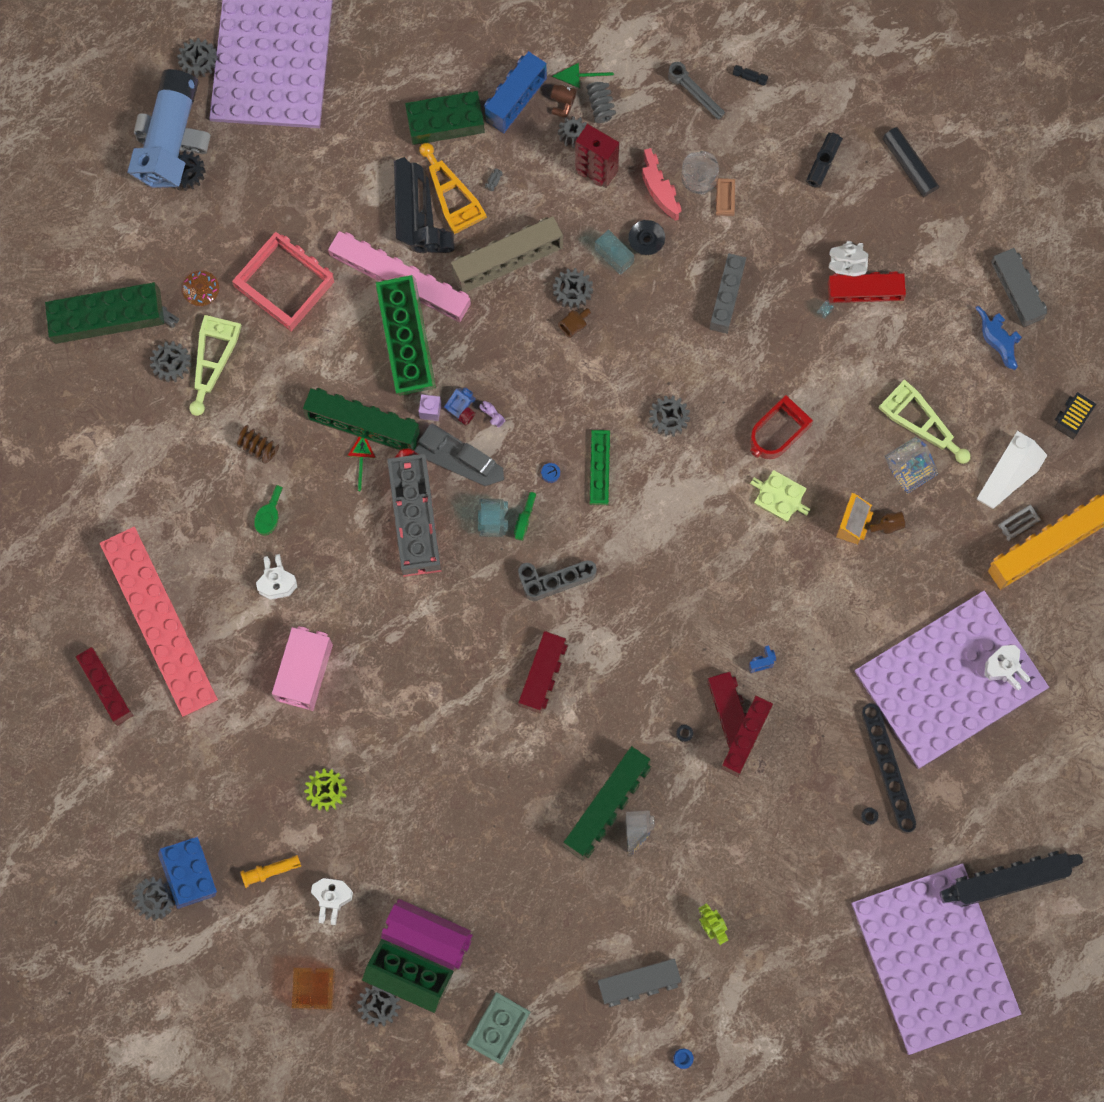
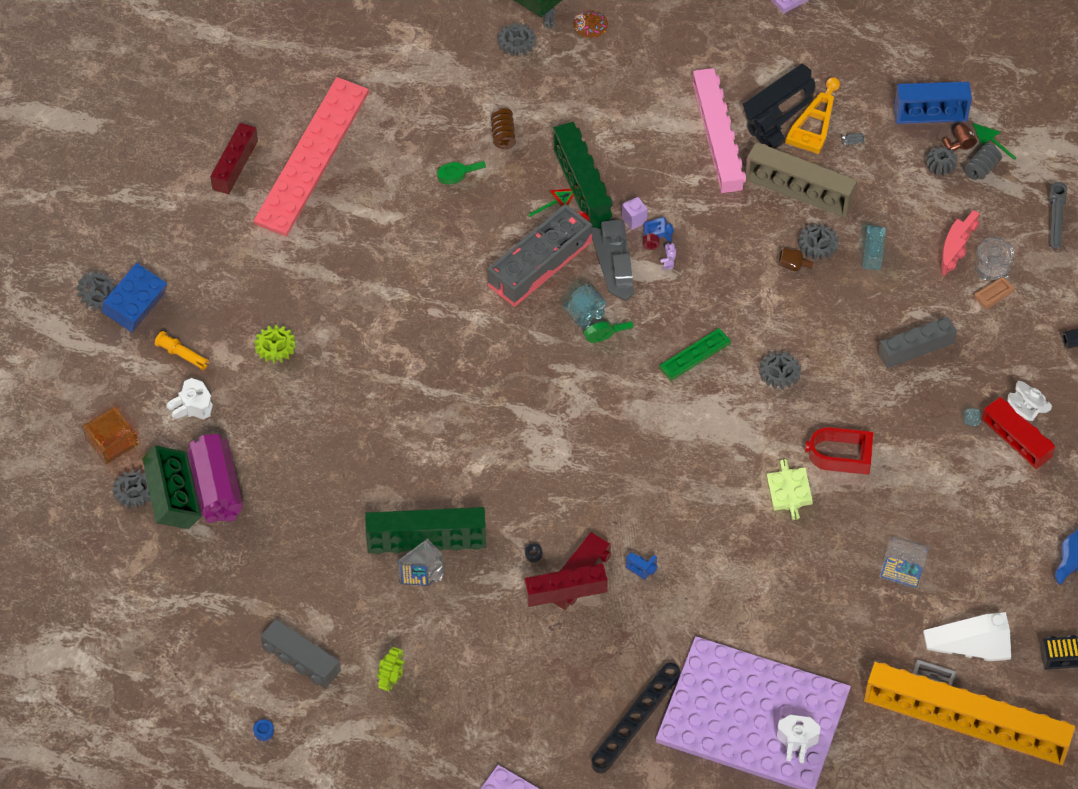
camera: 50 degrees right, 20 degrees down
(218, 329) = (566, 46): yellowish green plate -> none
(276, 578) = (410, 206): white hinge -> none
(298, 253) = (644, 39): coral window -> none
(302, 668) = (355, 264): bright pink brick -> none
(405, 335) = (673, 156): green brick -> none
(445, 117) = (867, 75): dark green brick -> none
(498, 1028) = (182, 584): sand green tile -> none
(542, 672) = (494, 422): dark red brick -> none
(550, 472) = (659, 325): blue tile -> none
(558, 577) = (598, 395): dark grey beam -> none
(596, 156) = (932, 176): dark red brick -> none
(650, 230) = (907, 255): black dish -> none
(854, 520) = (818, 547): slope -> none
(864, 820) = (582, 736): black axle -> none
(889, 523) = (841, 578): reddish brown piece -> none
(899, 400) = (950, 518): yellowish green plate -> none

